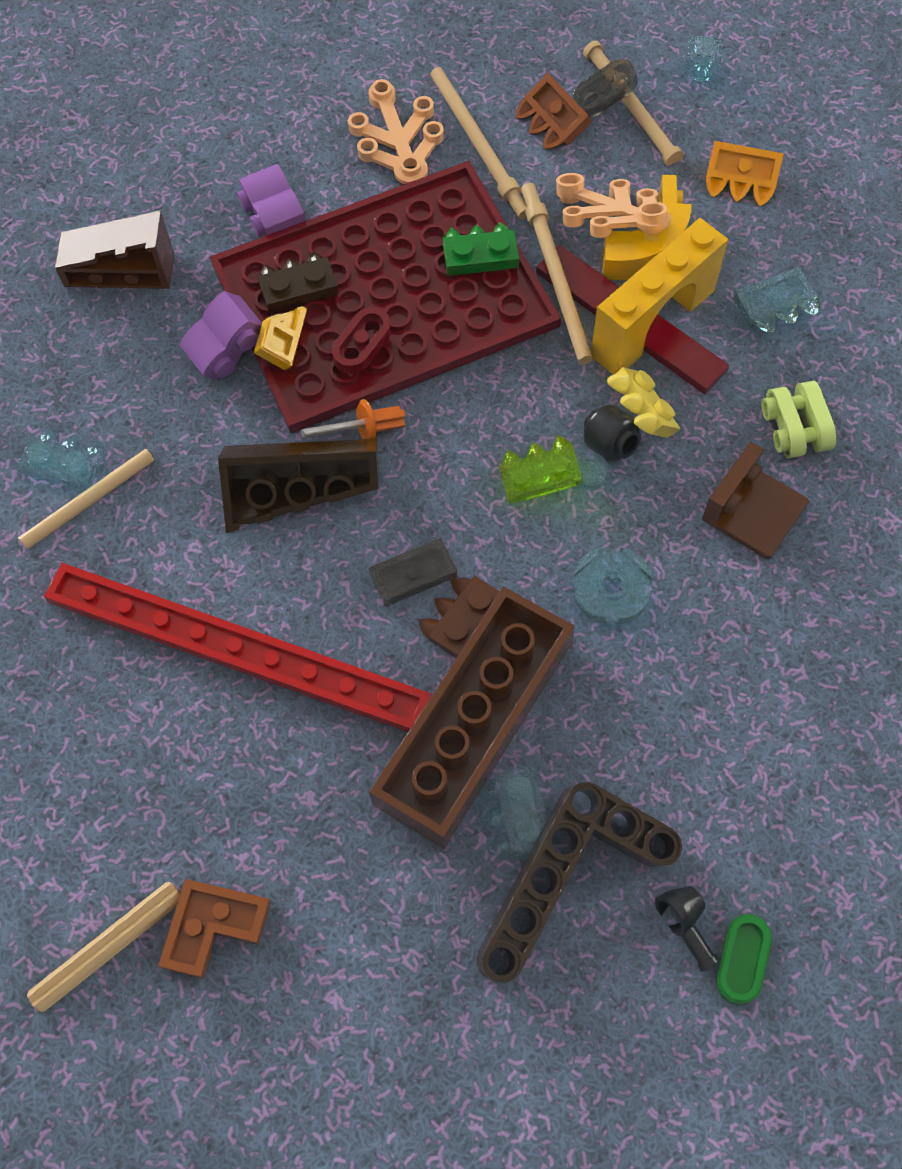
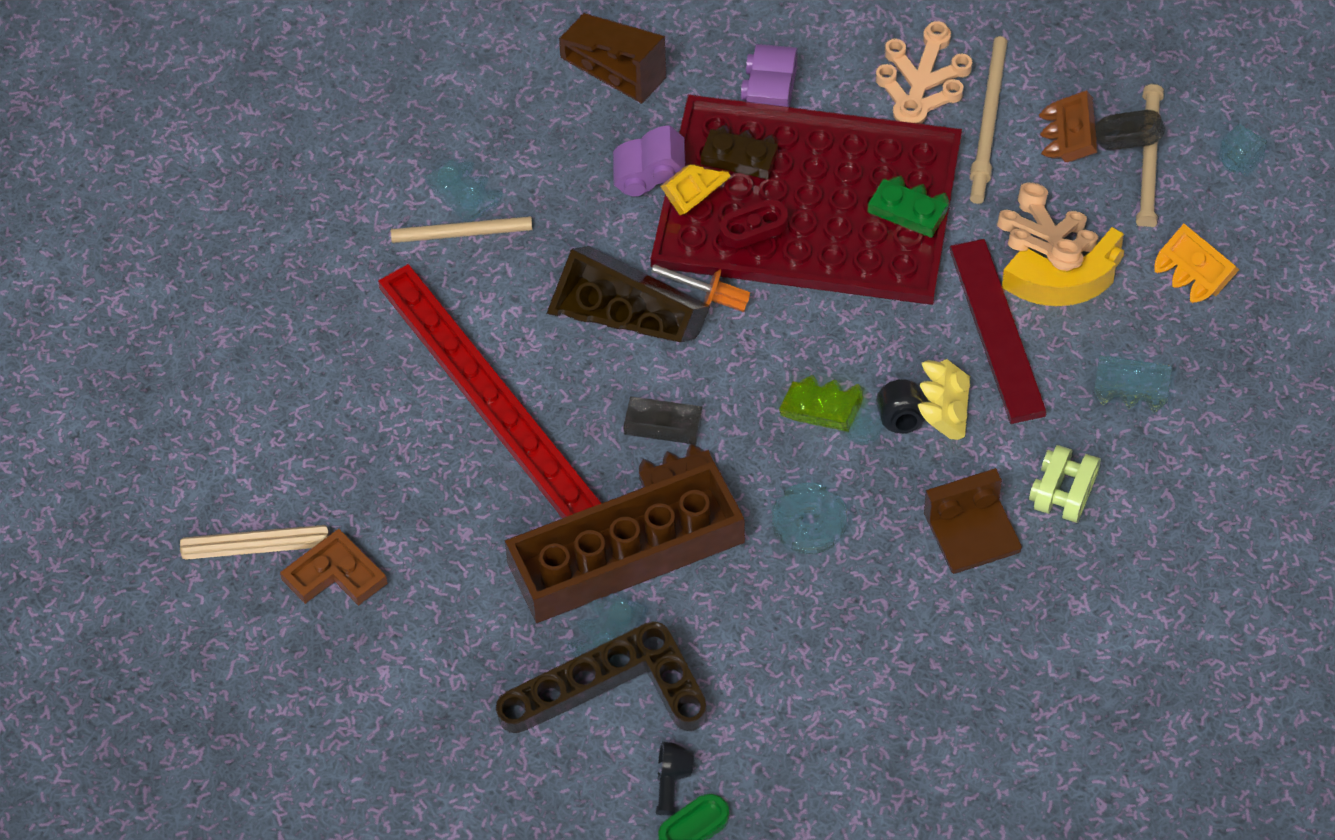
camera: 35 degrees right, 10 degrees down
(538, 218) = (981, 207): tan bar -> none
(682, 271) = (977, 313): yellow arch -> none

